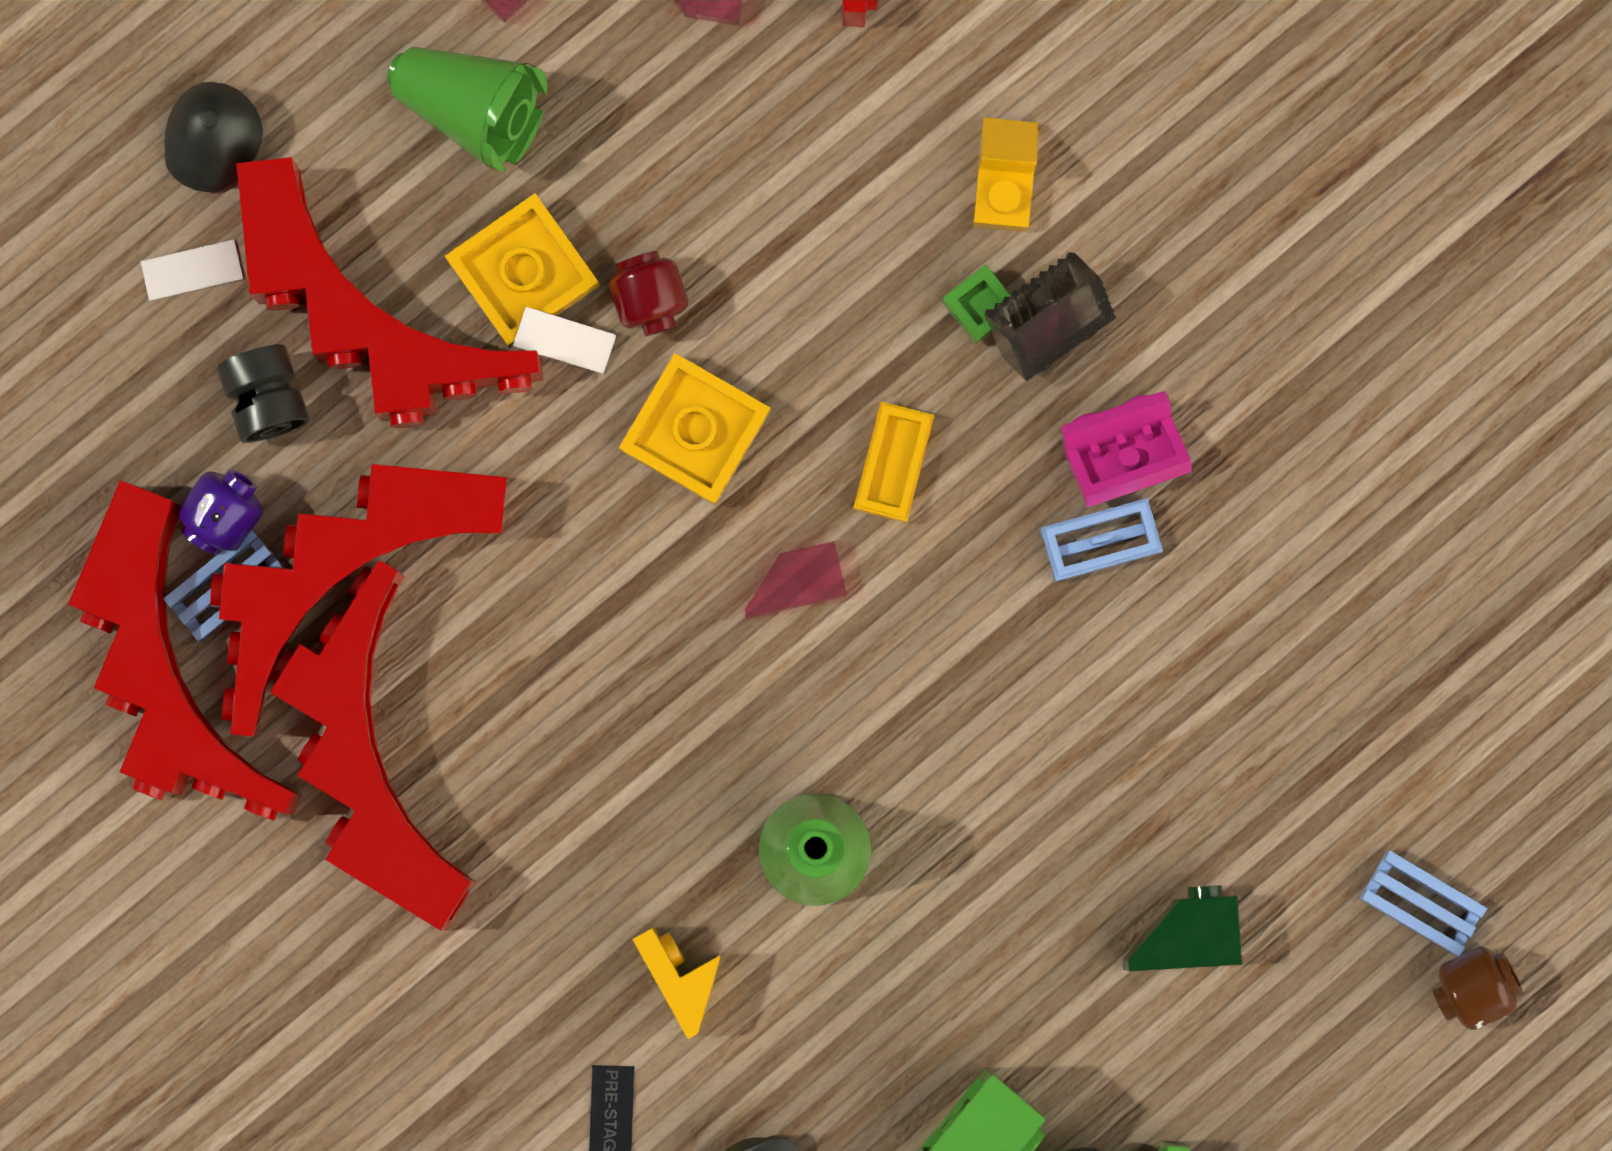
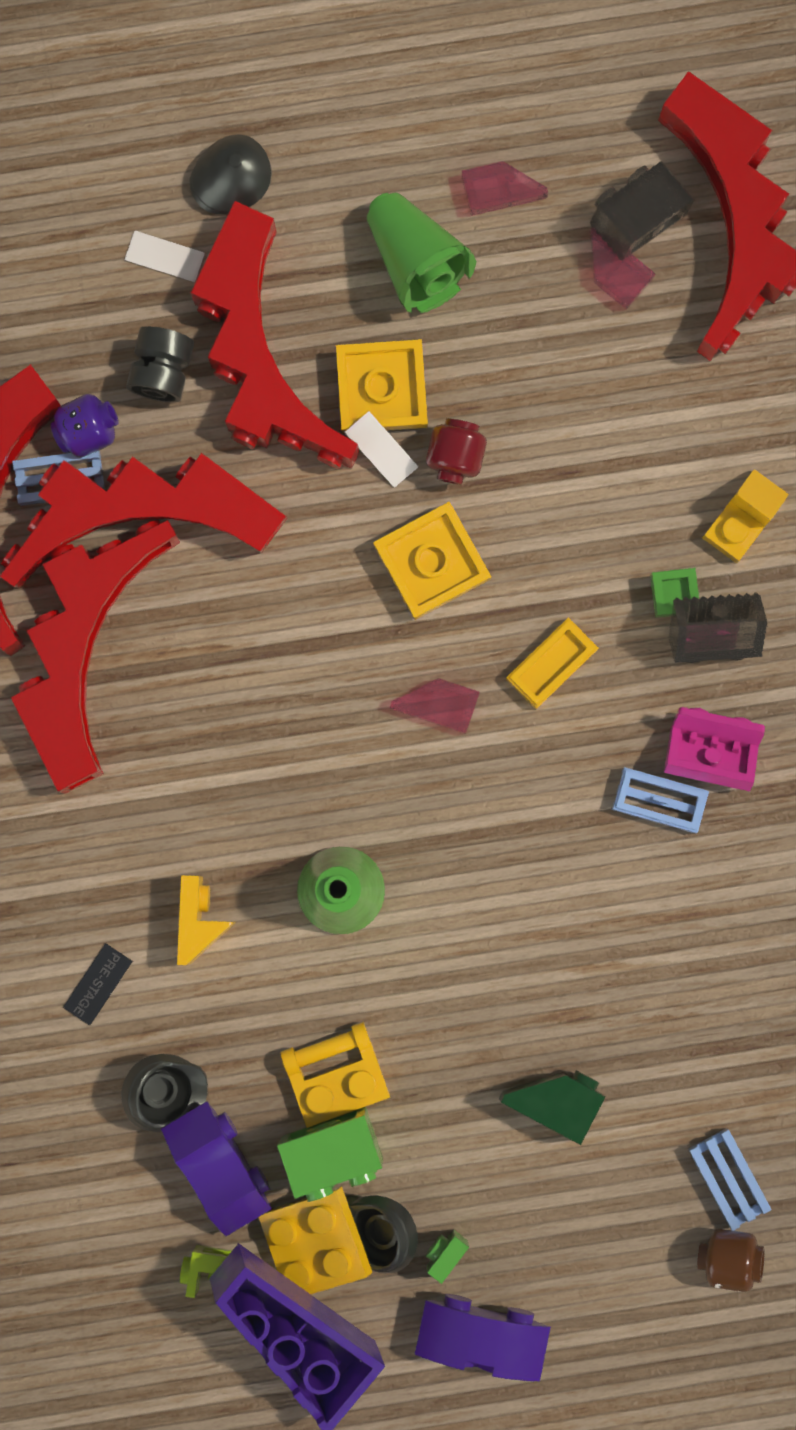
camera: 35 degrees right, 0 degrees up
(945, 1066) = (341, 1088): none -> yellow plate

